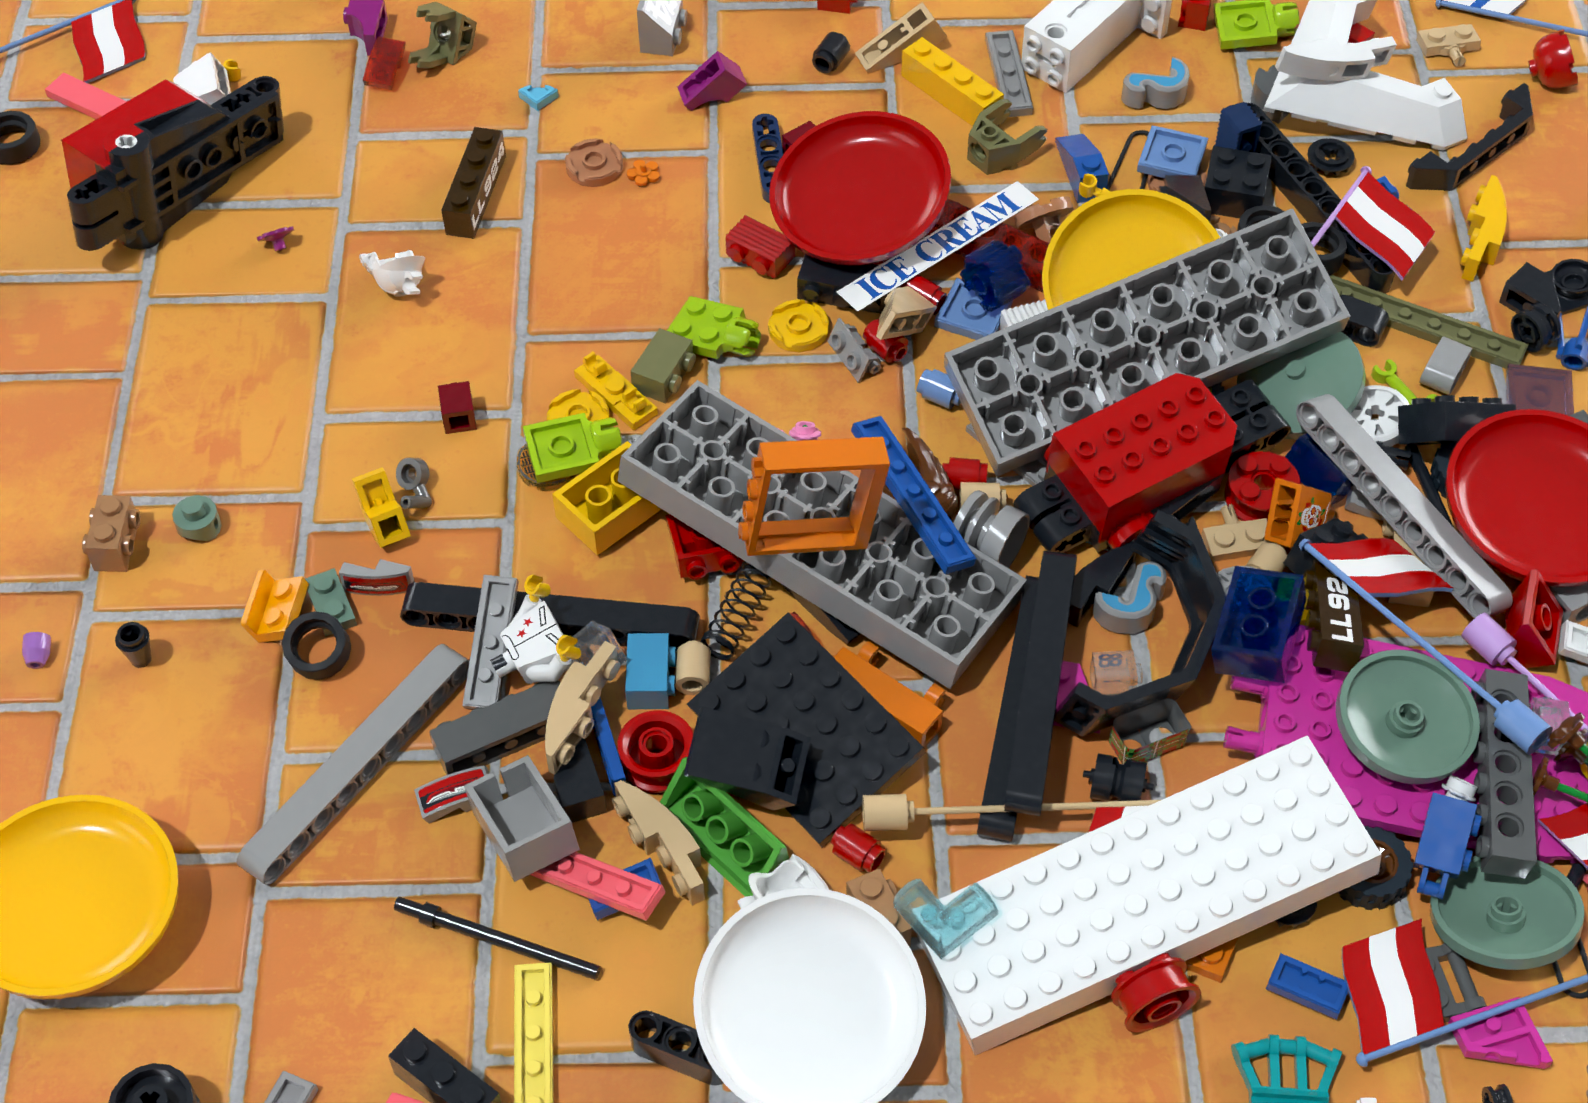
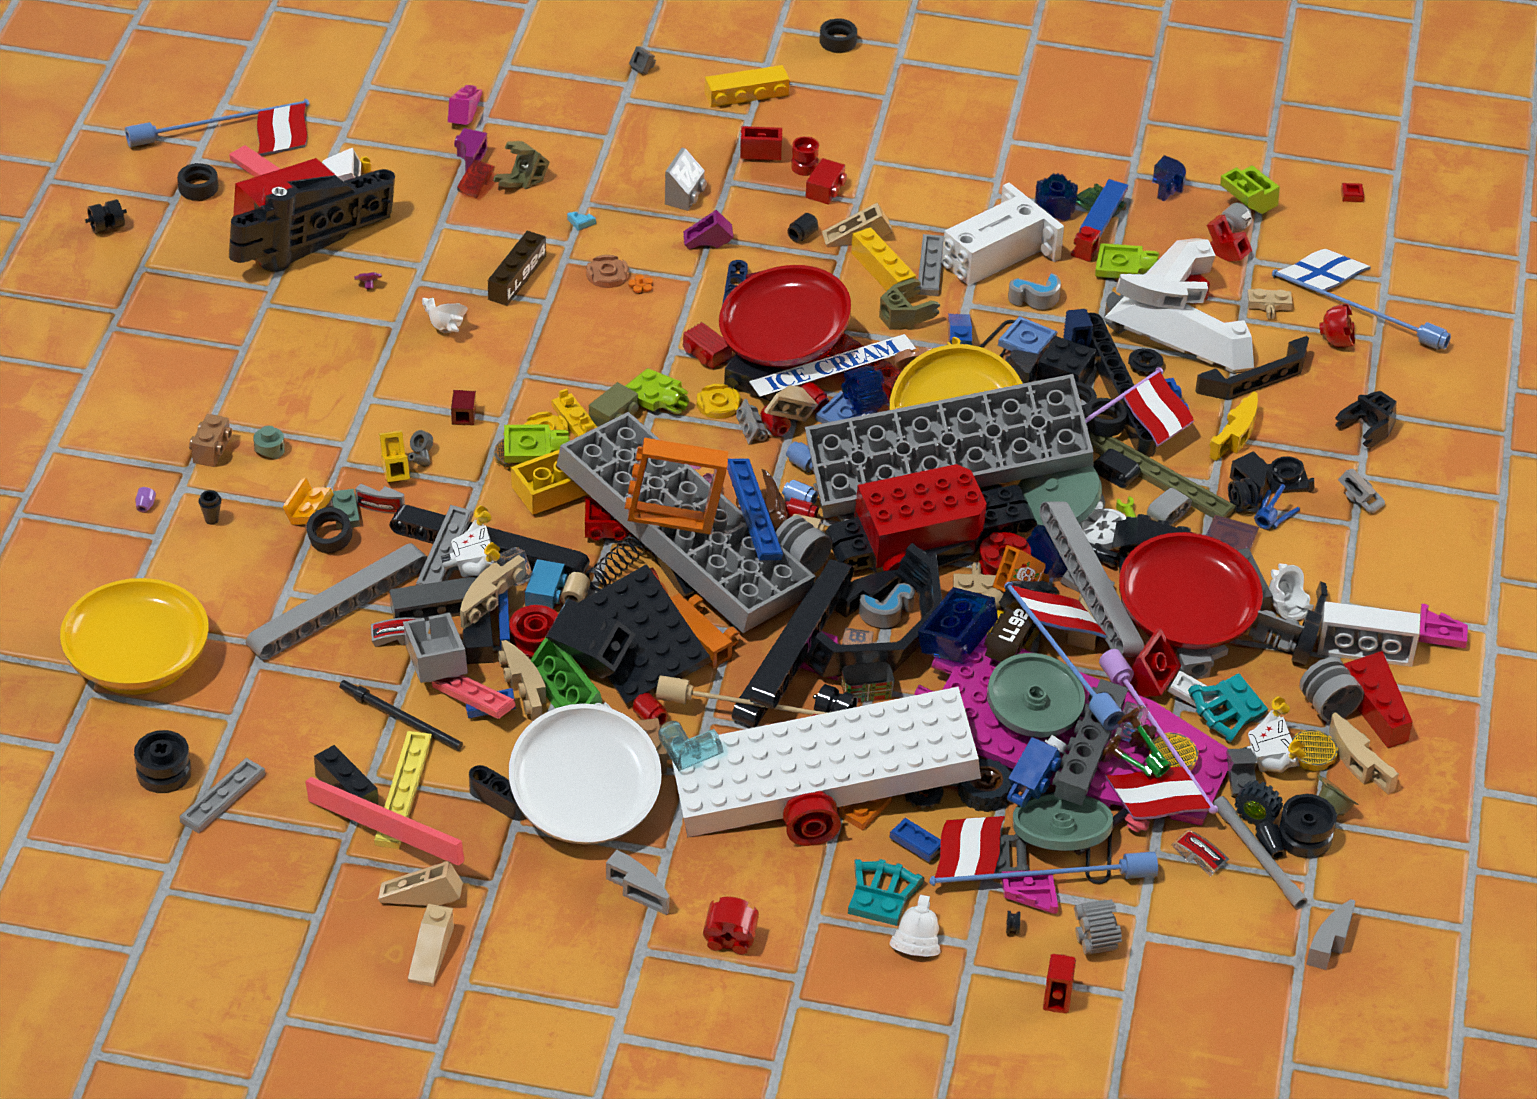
camera: 10 degrees right, 10 degrees down
(954, 444) = (799, 491): none -> light blue brick

